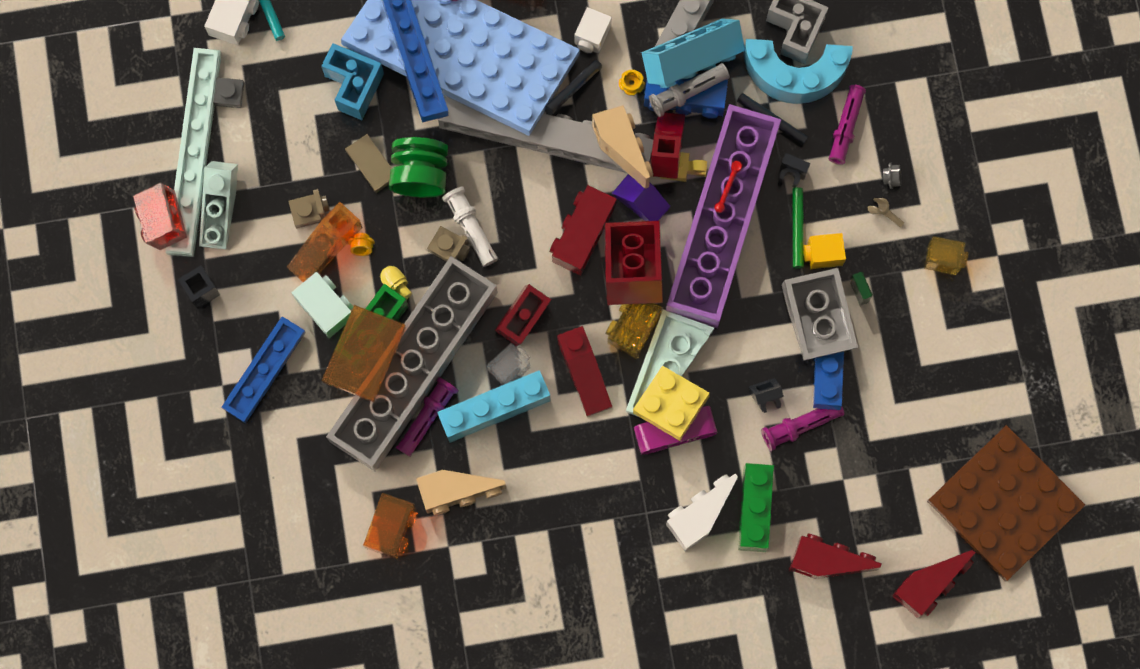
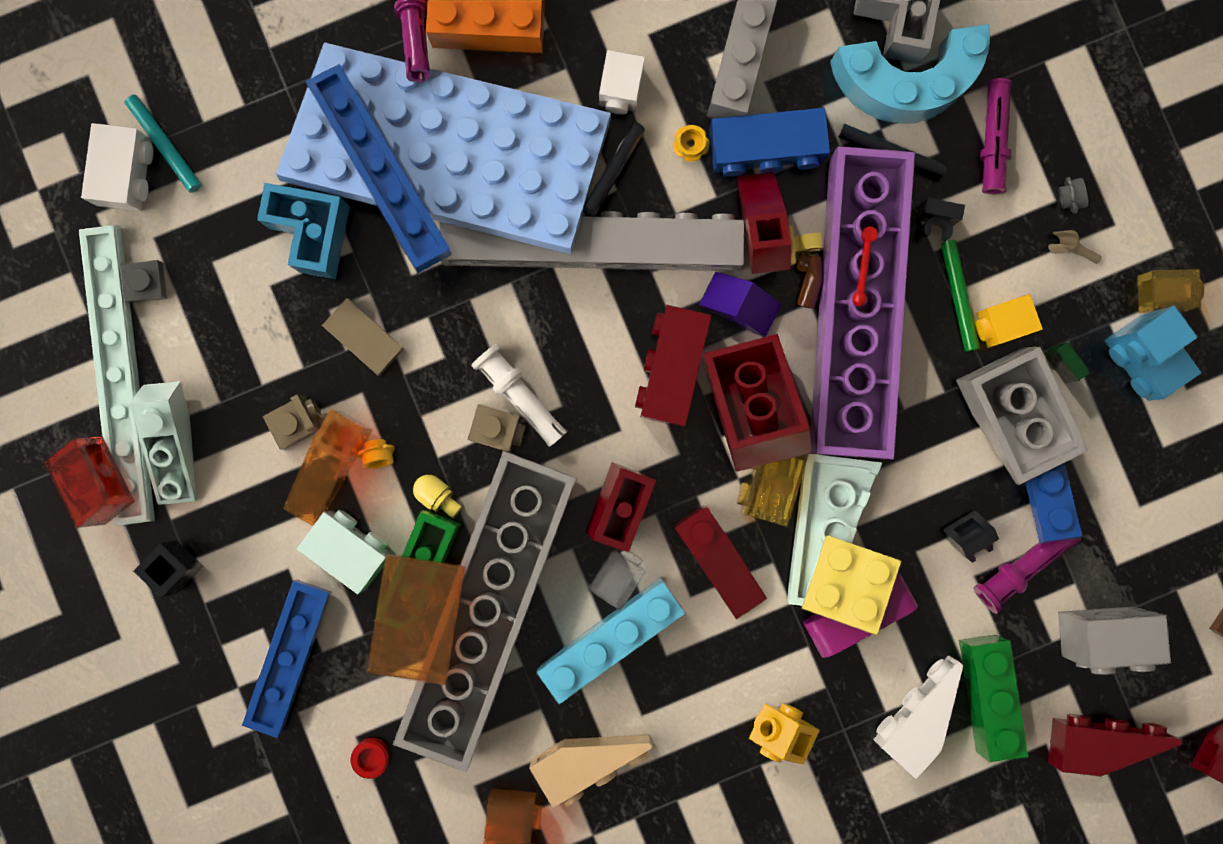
camera: 15 degrees left, 10 degrees up
(304, 454) = (370, 758): none -> red tile
(418, 167) = (427, 327): green wheel -> none
(434, 403) = (528, 656): magenta pin -> none
(600, 498) = (783, 734): none -> yellow brick
(616, 139) = (697, 234): tan slope -> none
(676, 93) = (764, 148): light grey pin -> none
(693, 52) = (771, 83): medium azure brick -> none
(696, 186) = (813, 279): none -> reddish brown arm
(848, 481) = (1114, 639): none -> light grey brick
(922, 295) = (1155, 353): none -> dark azure brick

